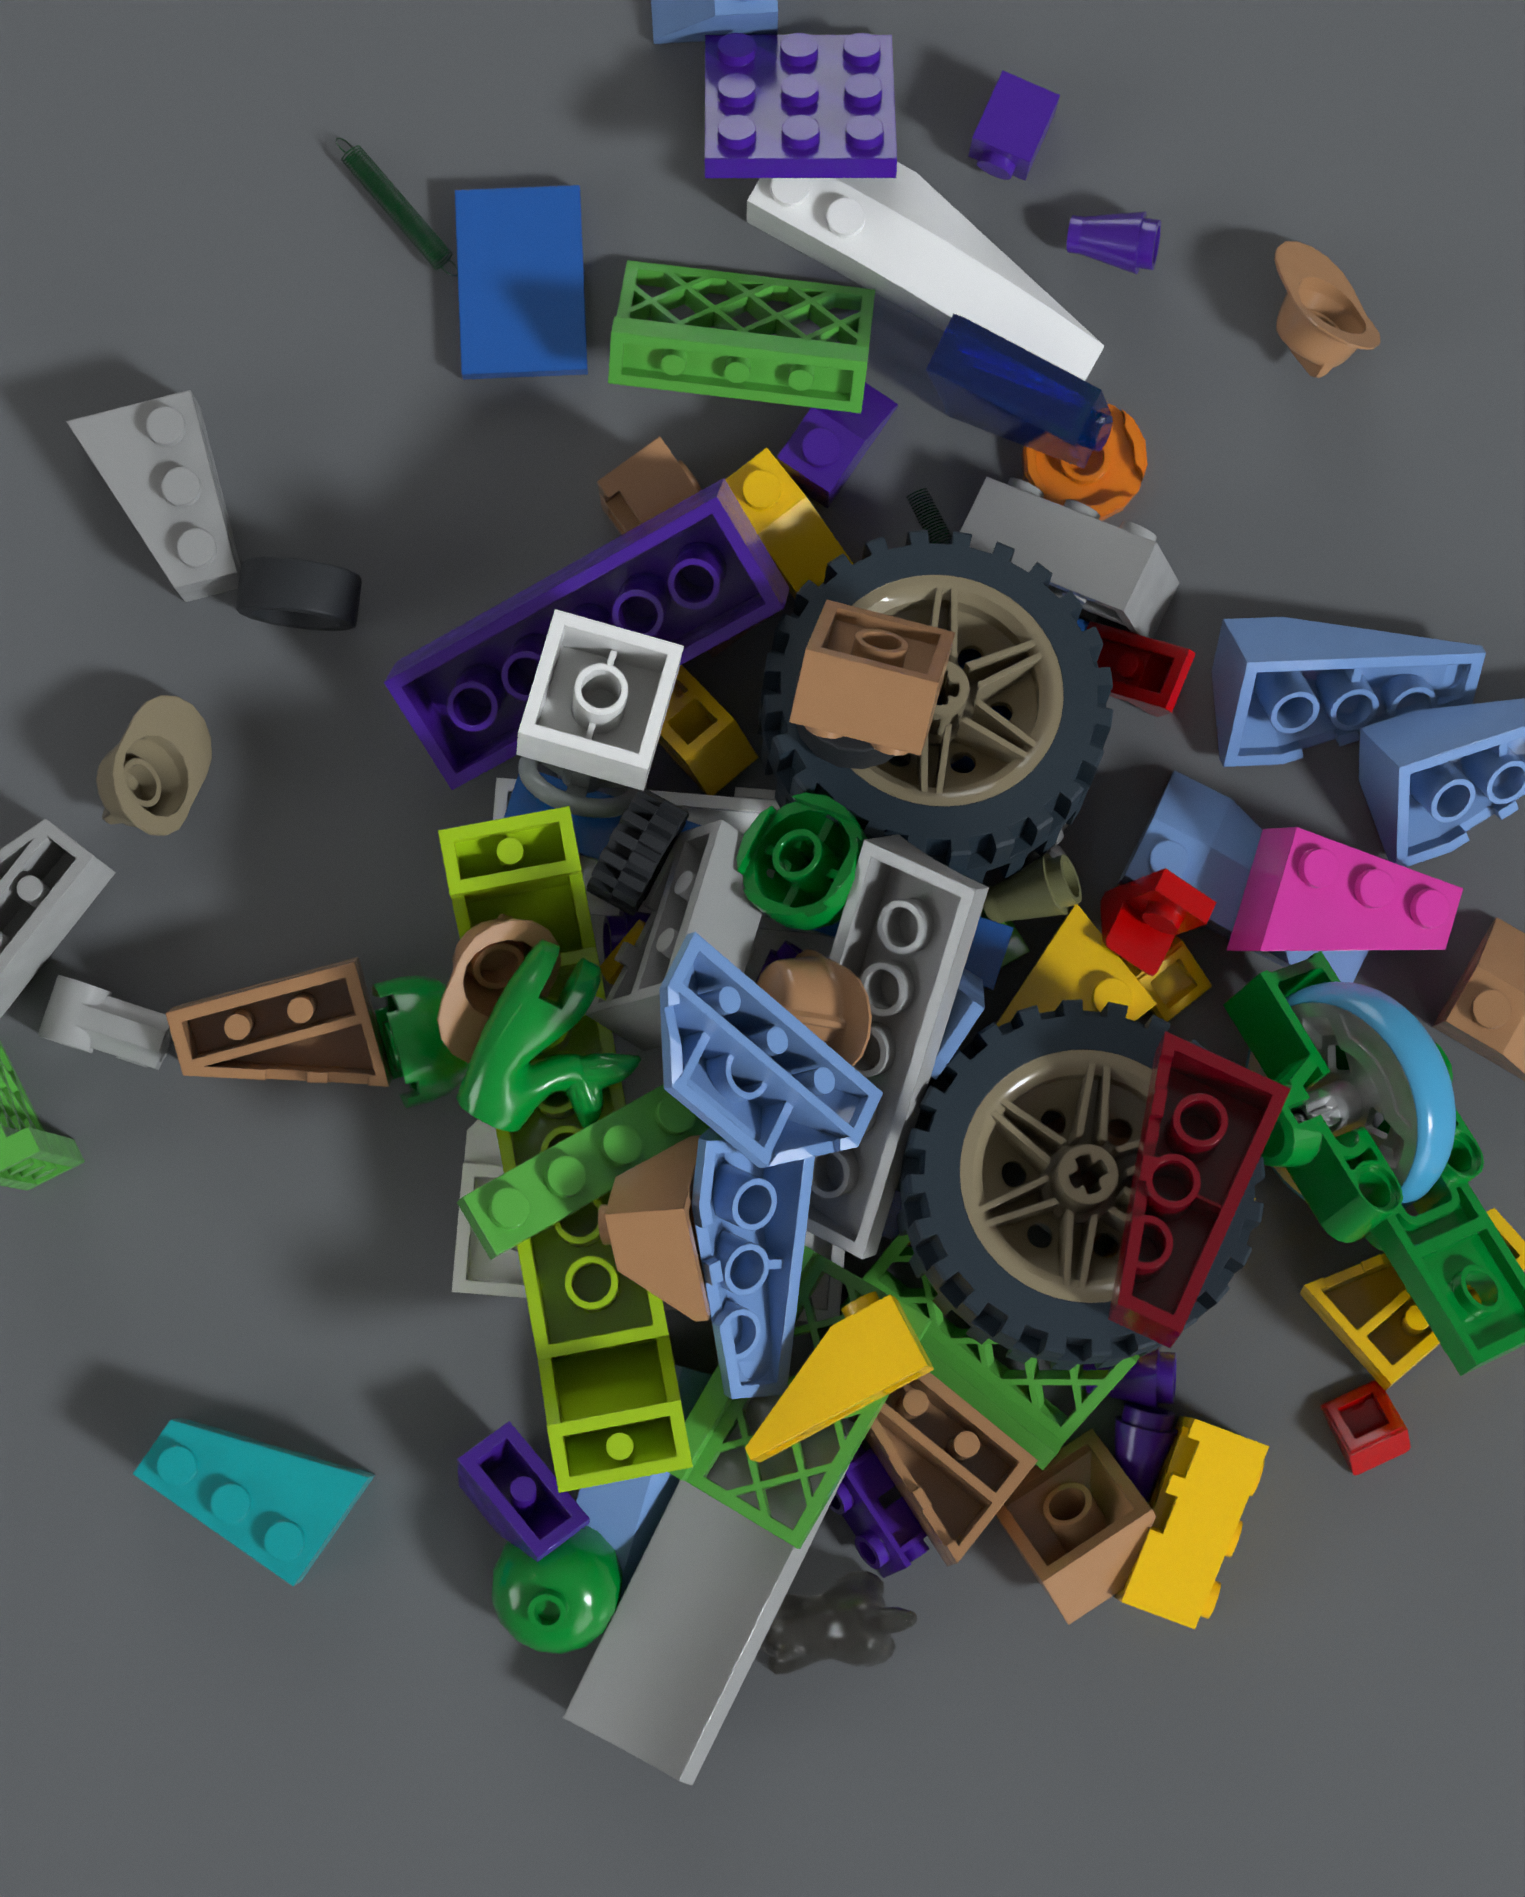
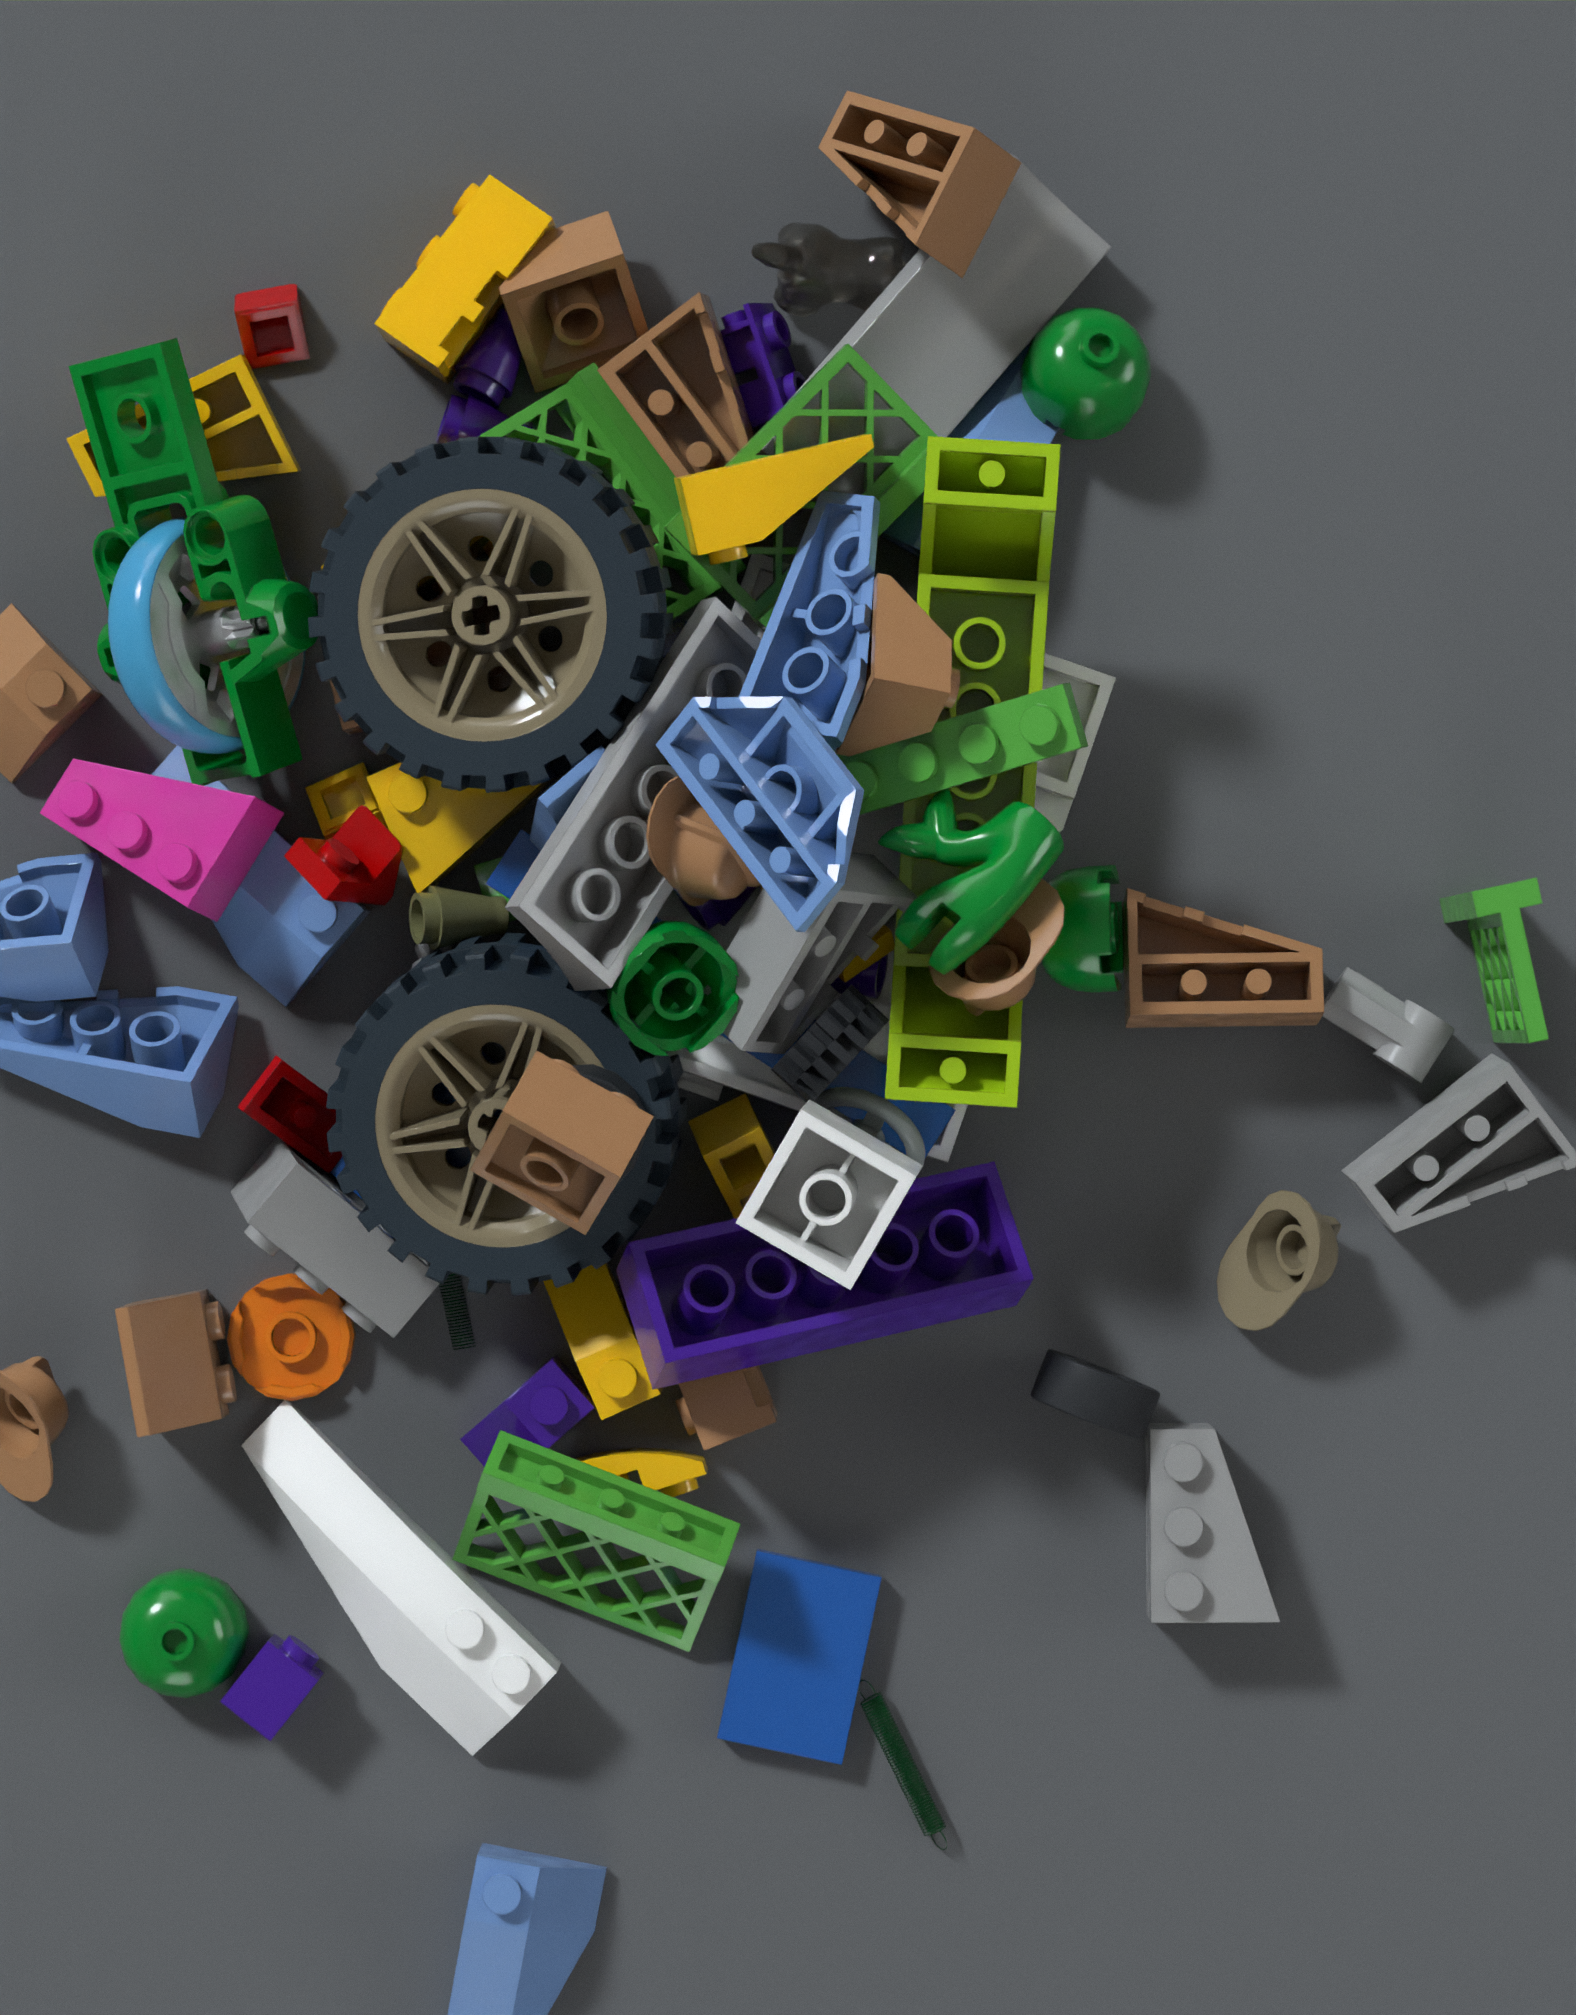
camera: 160 degrees left, 5 degrees up
(253, 1493) = (1353, 535): teal wedge -> none
(518, 1493) = (1099, 466): dark purple slope -> none
(699, 421) = (658, 1468): none -> yellow slope
(766, 1738) = (922, 173): none -> medium nougat wedge
(799, 106) = (480, 1756): plate -> none
(1017, 394) = (340, 1409): clear blue slope -> none
(1111, 155) = (184, 1633): none -> green cylinder
(1116, 239) = (200, 1546): dark purple cone -> none
(1190, 401) = (175, 1361): none -> medium nougat slope
(1192, 1166) = (384, 586): dark red wedge -> none

